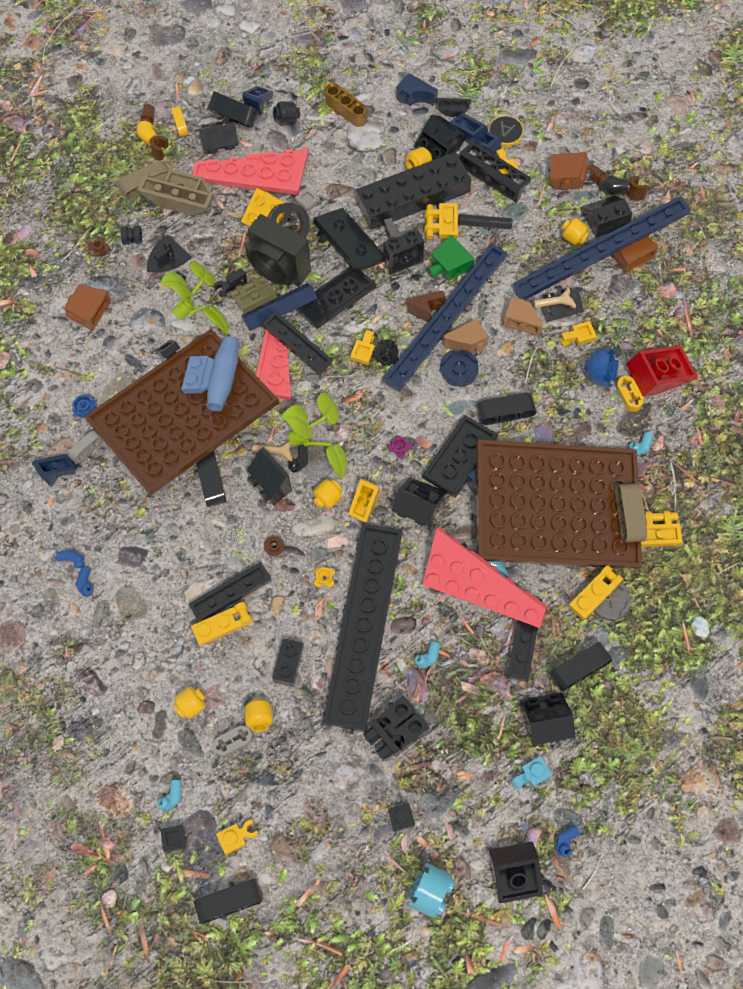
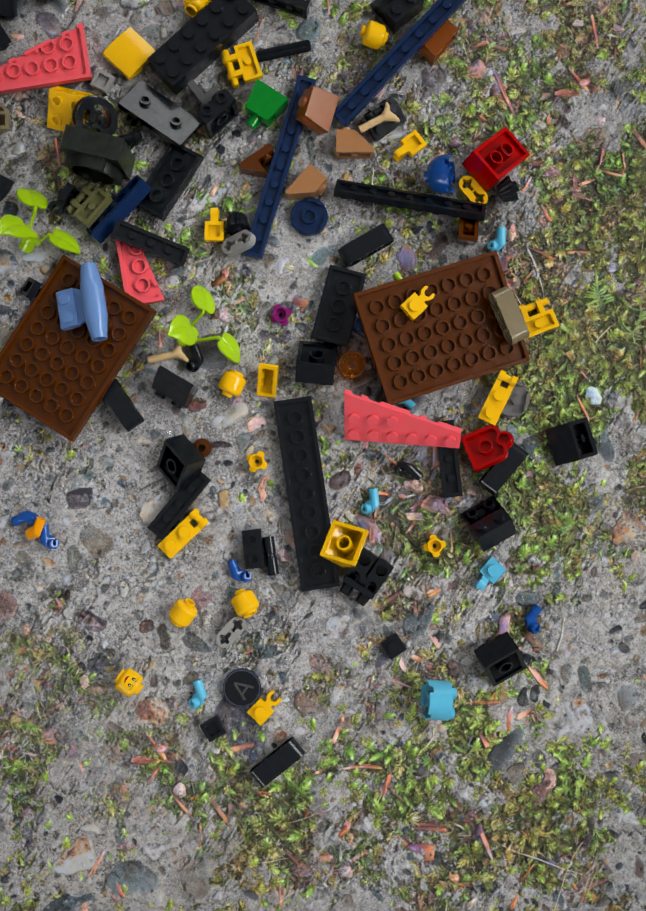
camera: 20 degrees left, 20 degrees up
(75, 570) = (35, 530): none -> light orange arm
(104, 755) = (129, 682): none -> yellow head
(221, 806) = (242, 687): none -> black tile
(246, 549) = (180, 461): none -> black slope
(262, 683) = (237, 573): none -> blue arm
(303, 678) = (270, 552): none -> black piece
(317, 252) = (133, 138): none -> black pin
(340, 183) = (129, 53): none -> yellow slope
(381, 368) = (239, 244): none -> light grey beam
(384, 685) = (344, 544): none -> yellow slope
(454, 514) = (351, 365): none -> clear orange wheel
(475, 631) = (408, 467): none -> black arm
(481, 730) = (439, 545): none -> yellow plate
(499, 276) = (317, 109): none -> torso
(537, 470) = (415, 305): none -> yellow plate
(560, 578) = (462, 391): none -> clear arm
(566, 381) = (410, 200): none -> black plate
(570, 637) = (487, 446): none -> red plate
(613, 425) = (467, 231): none -> reddish brown slope
(662, 661) = (571, 441): none -> black slope
(665, 400) = (507, 190): none -> black piece

